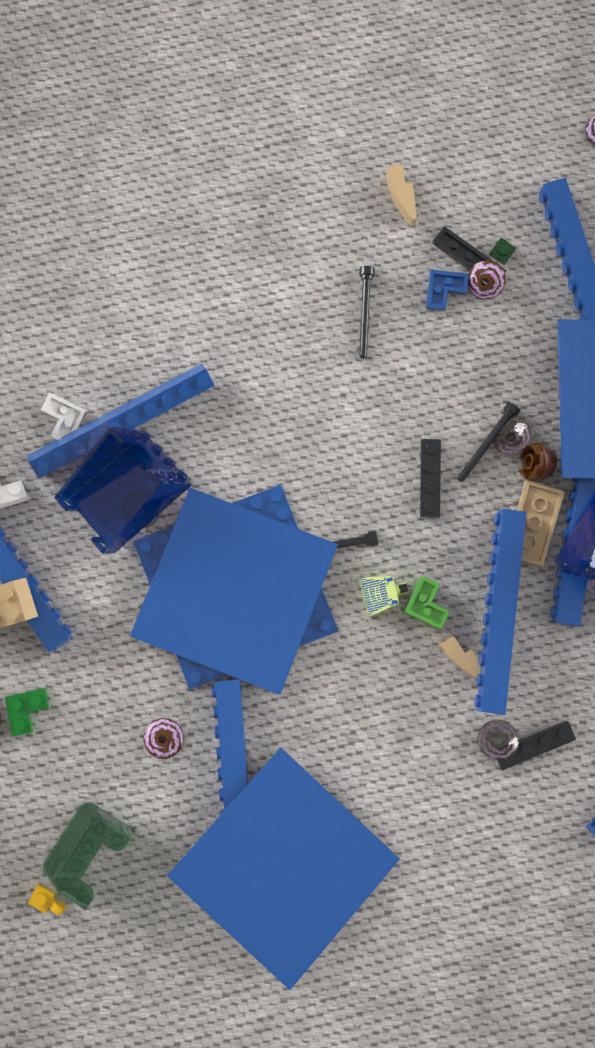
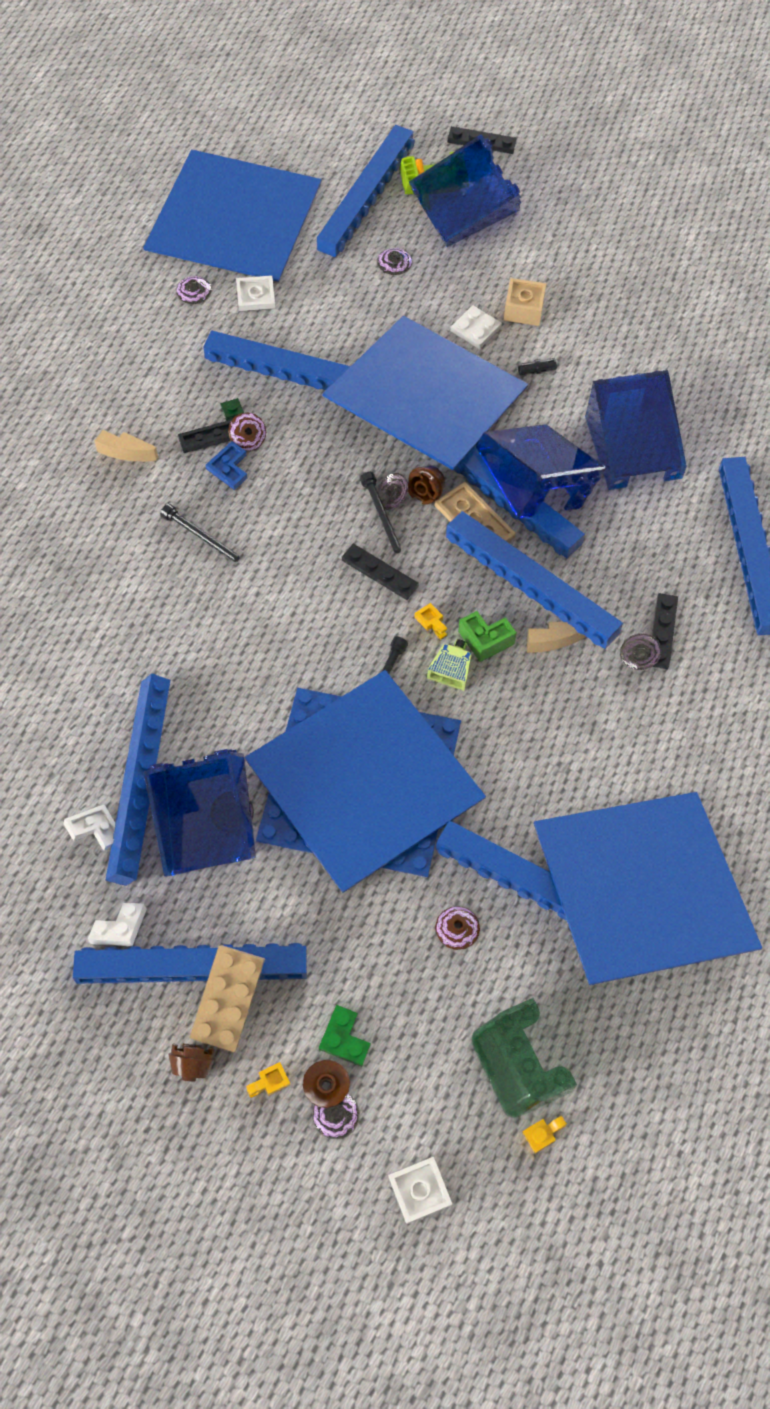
camera: 55 degrees left, 20 degrees down
(412, 547) = (430, 618): none -> yellow plate

